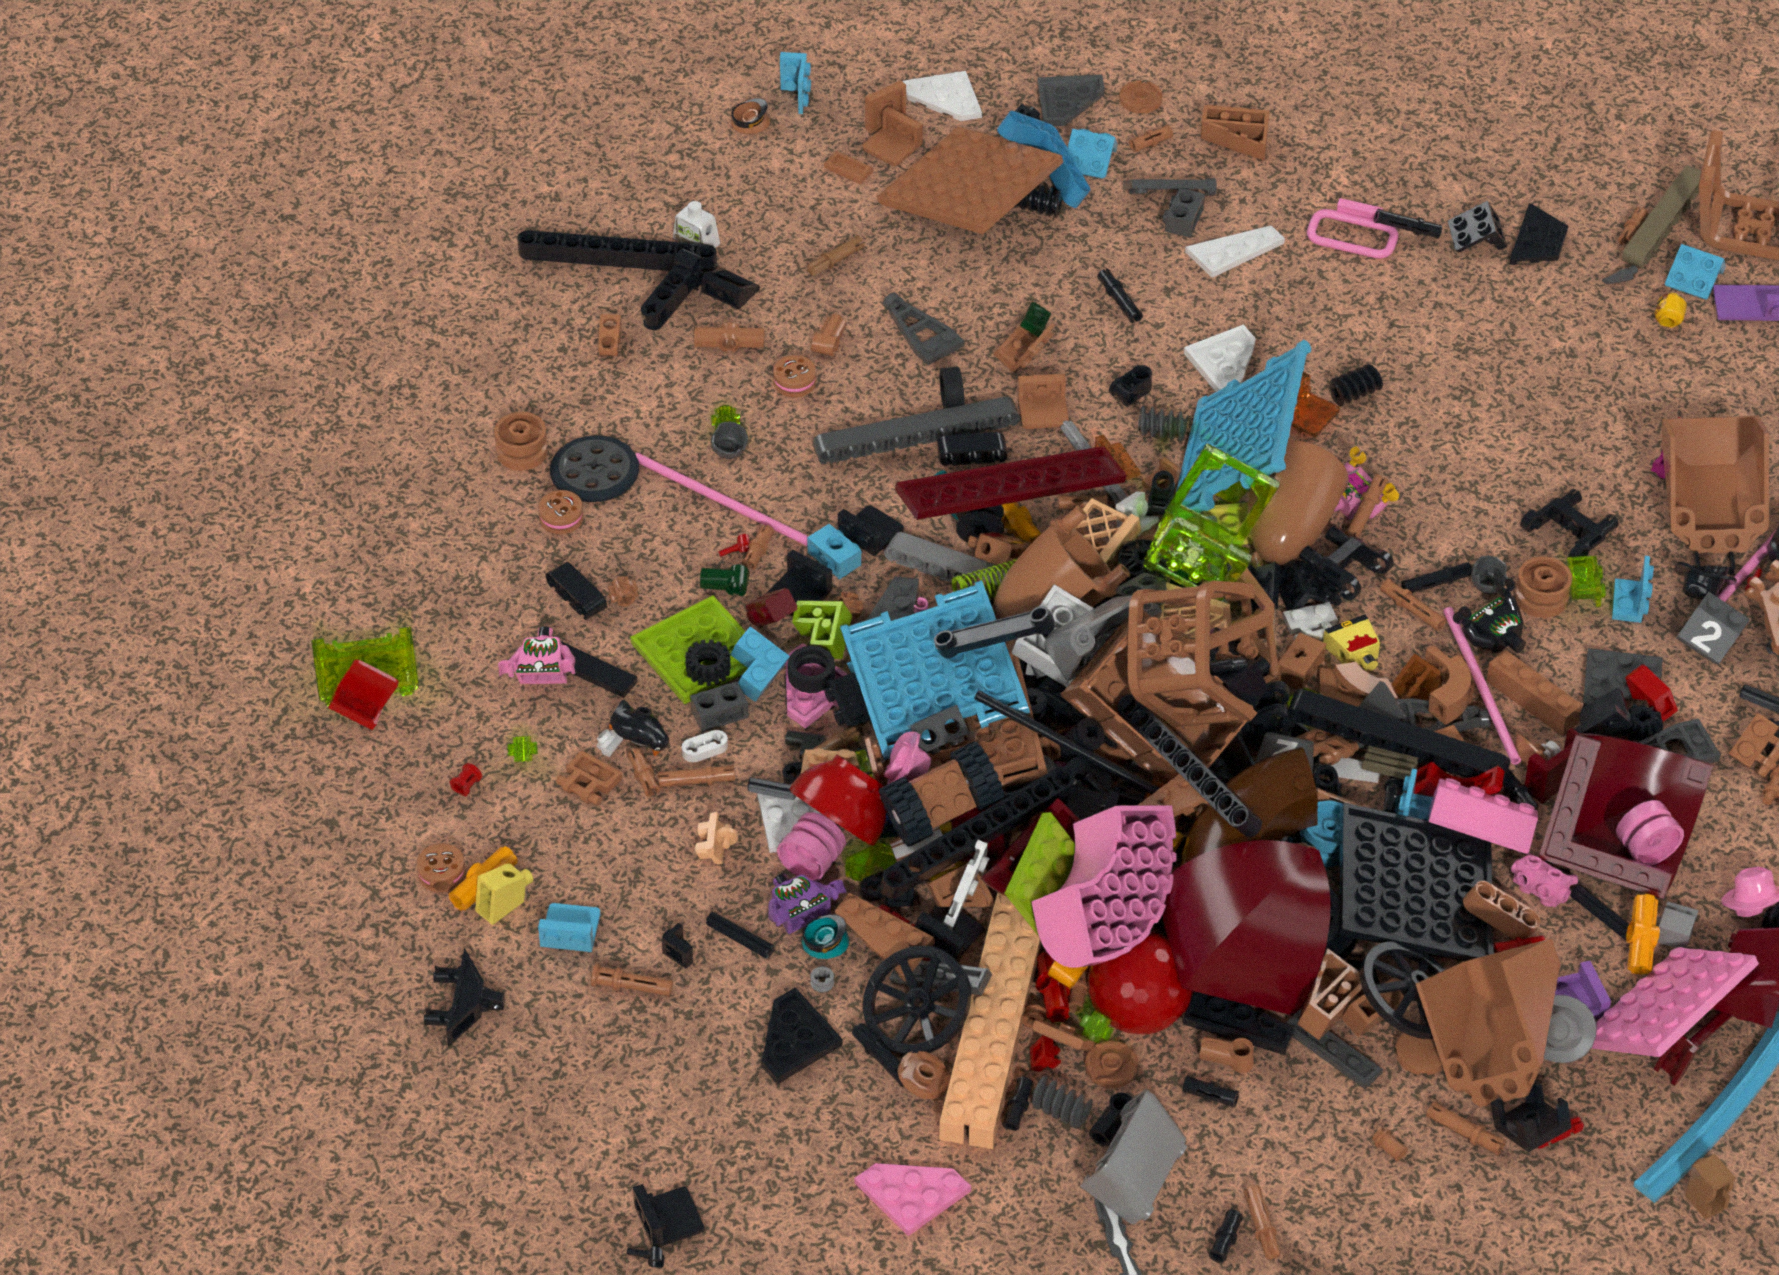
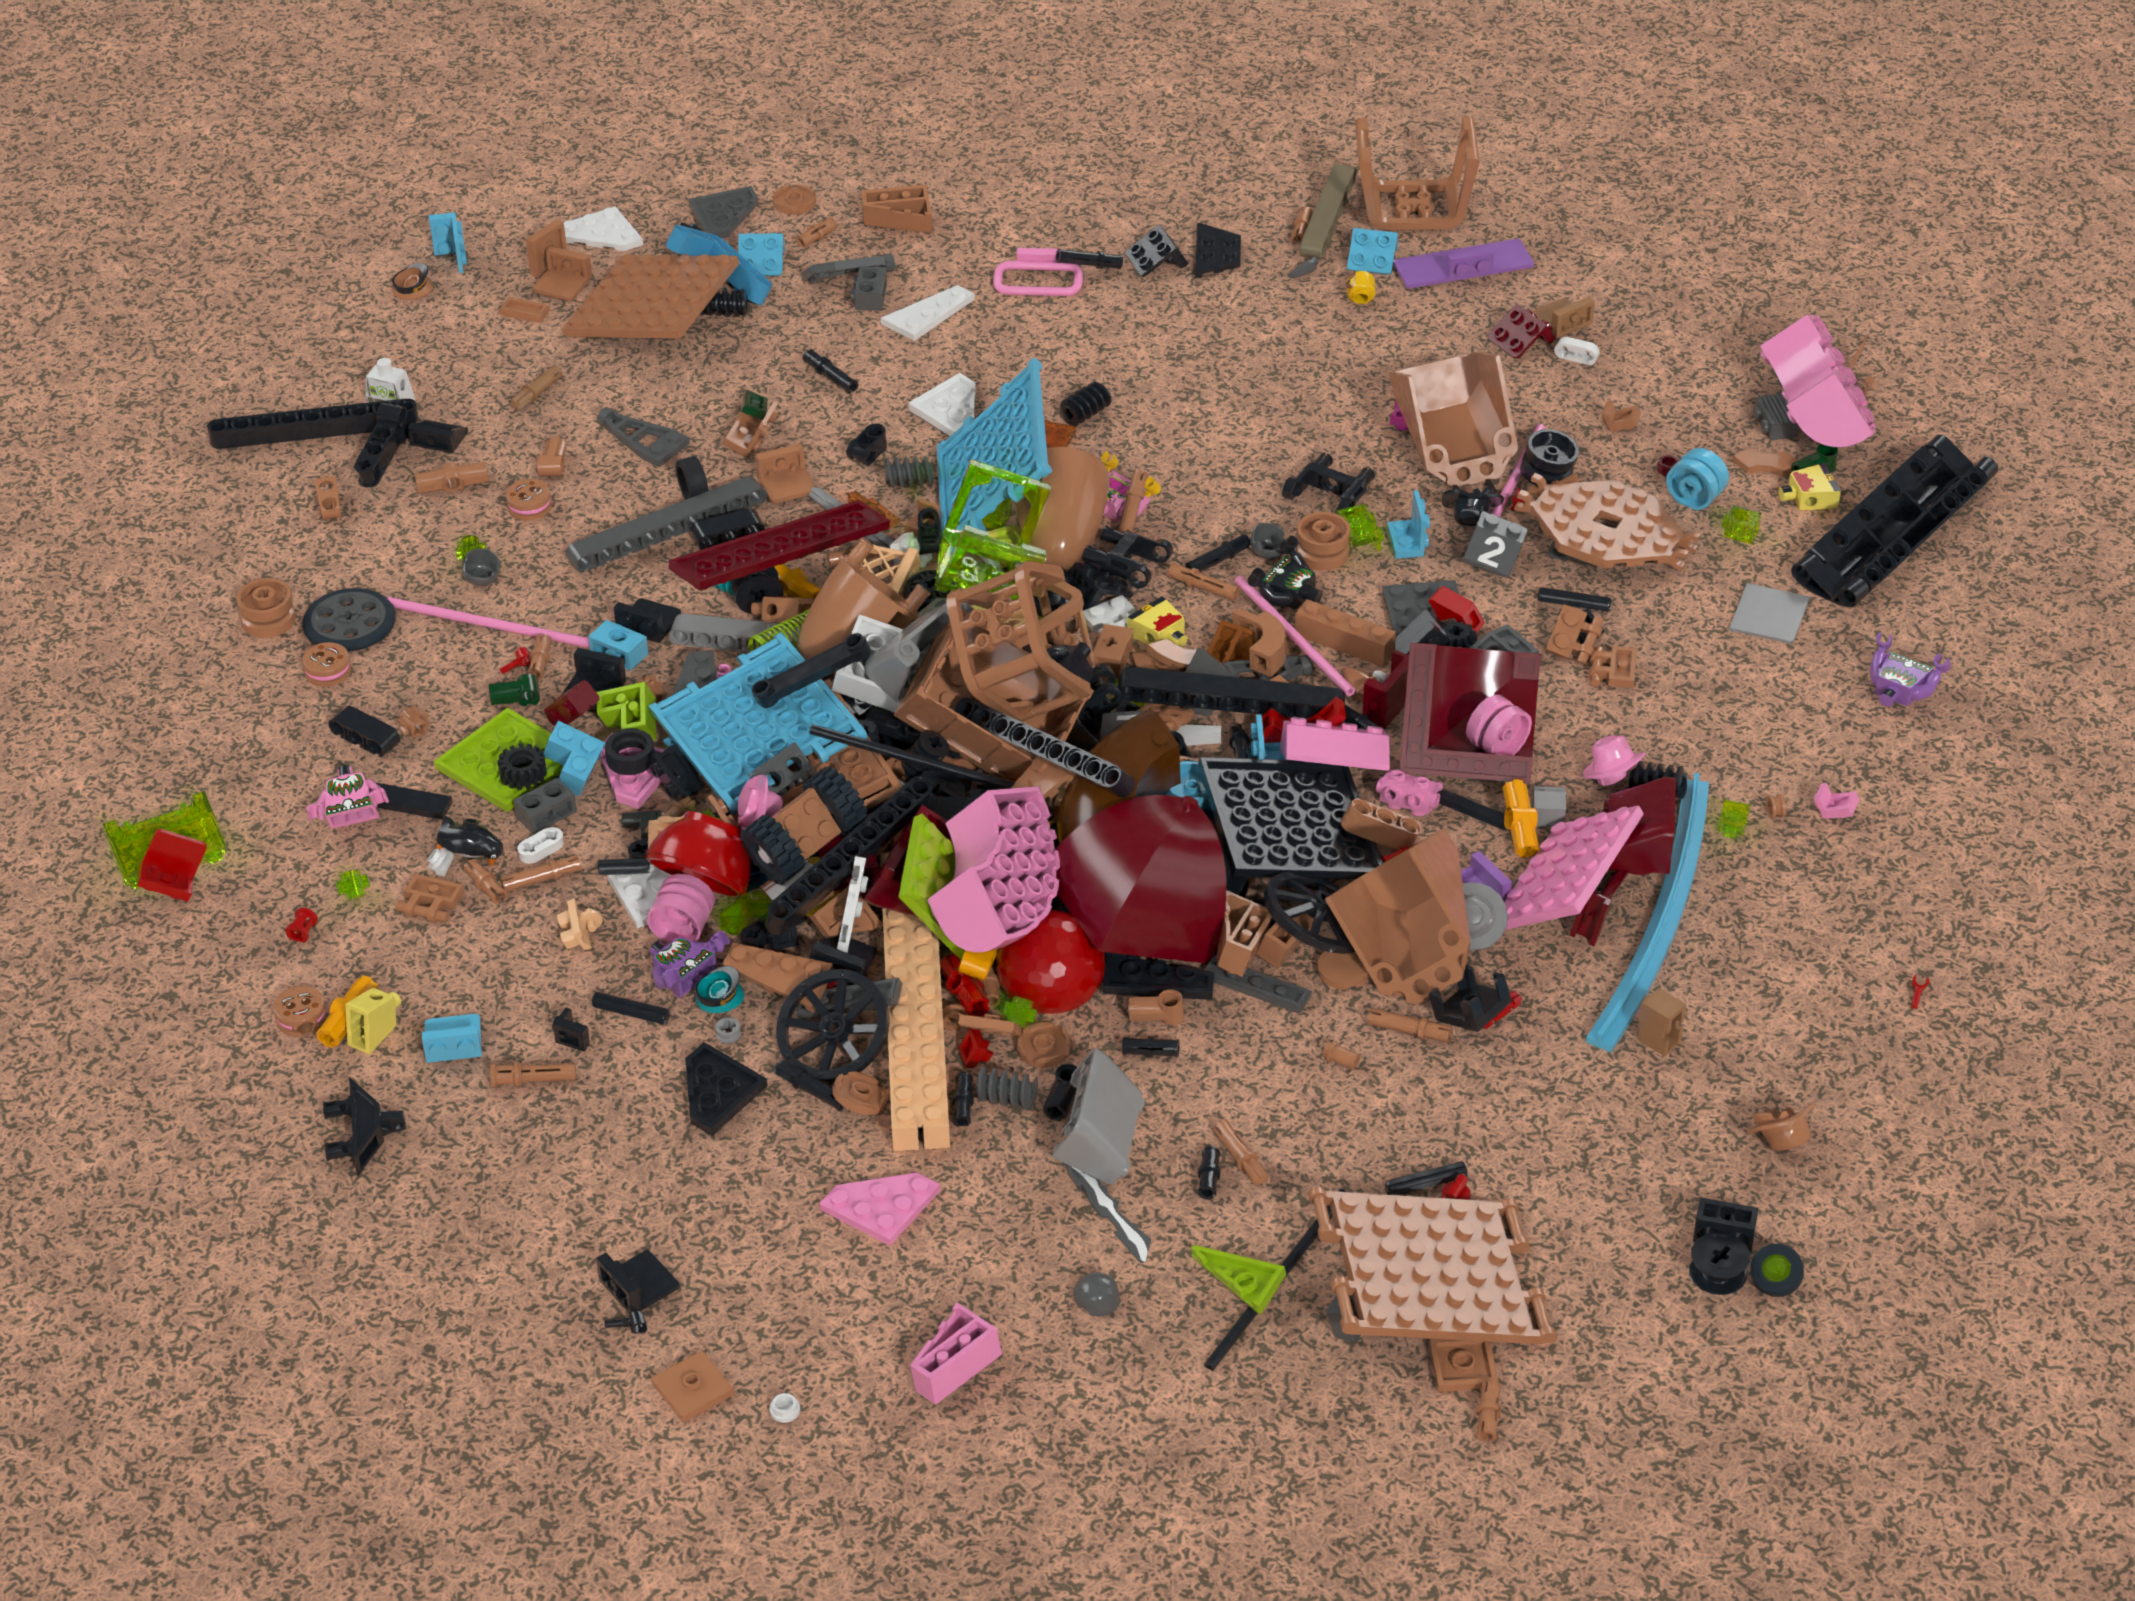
camera: 15 degrees left, 5 degrees down
(1391, 760) = (1228, 720): dark tan tile -> none

